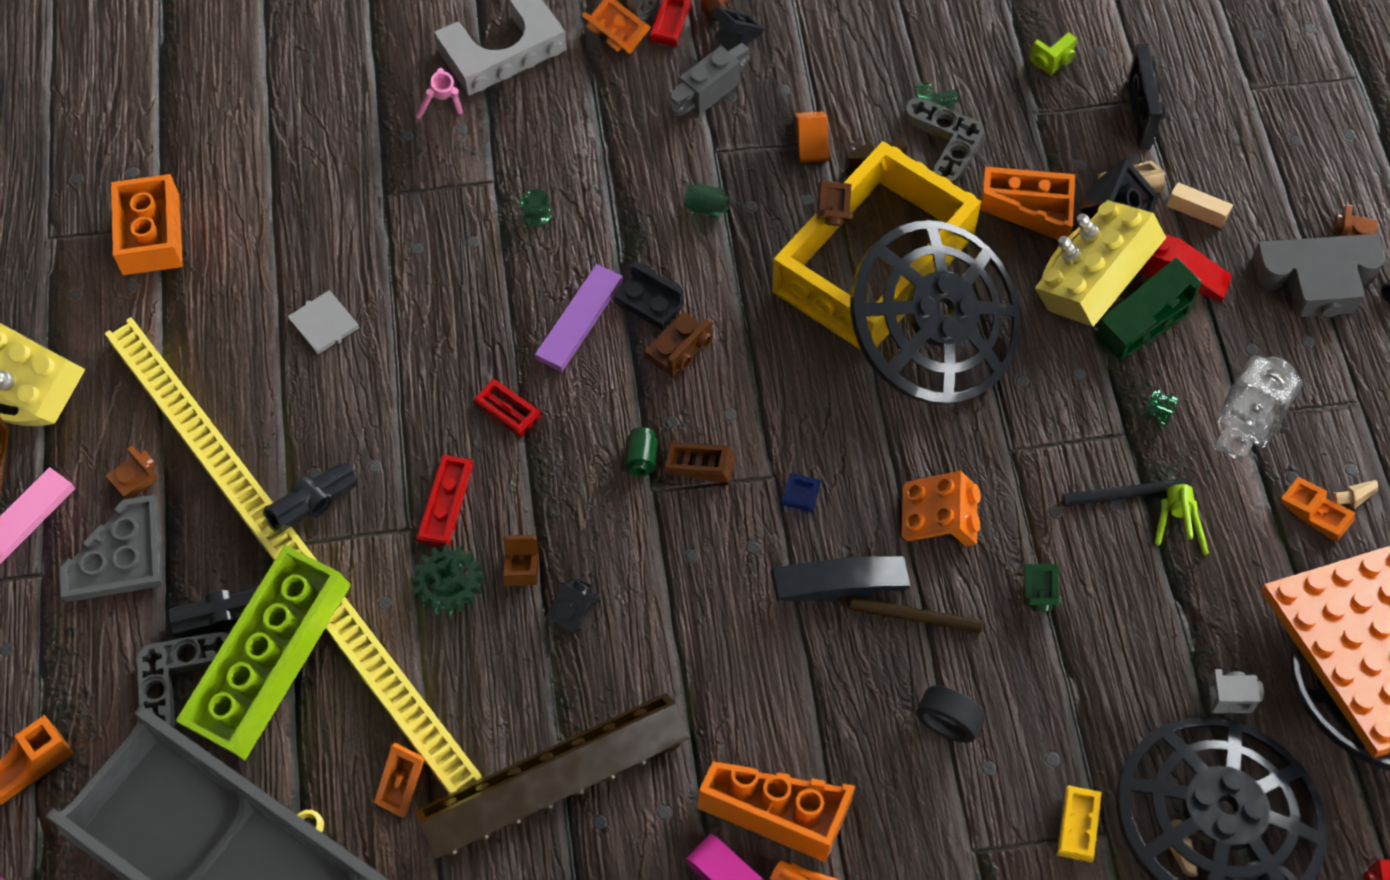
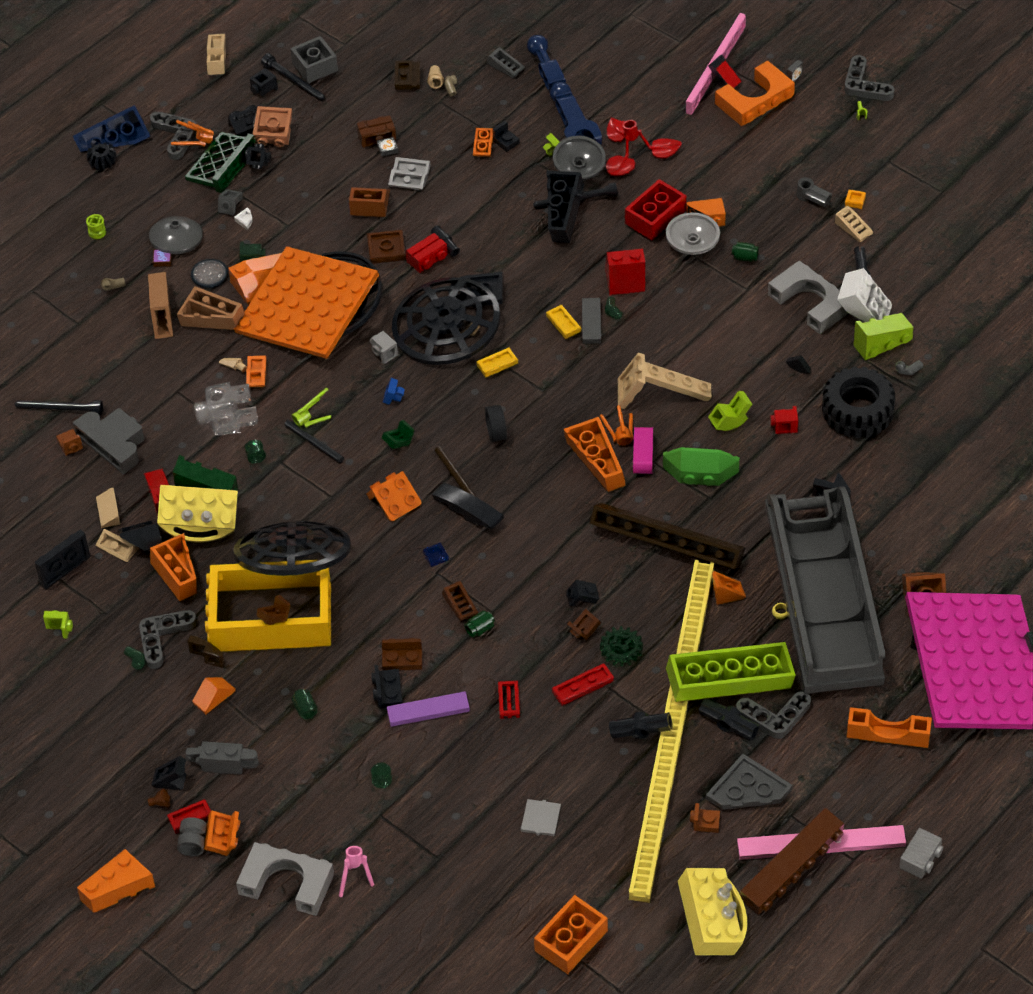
camera: 130 degrees left, 10 degrees down
(1133, 640) = (393, 392): none -> blue tile

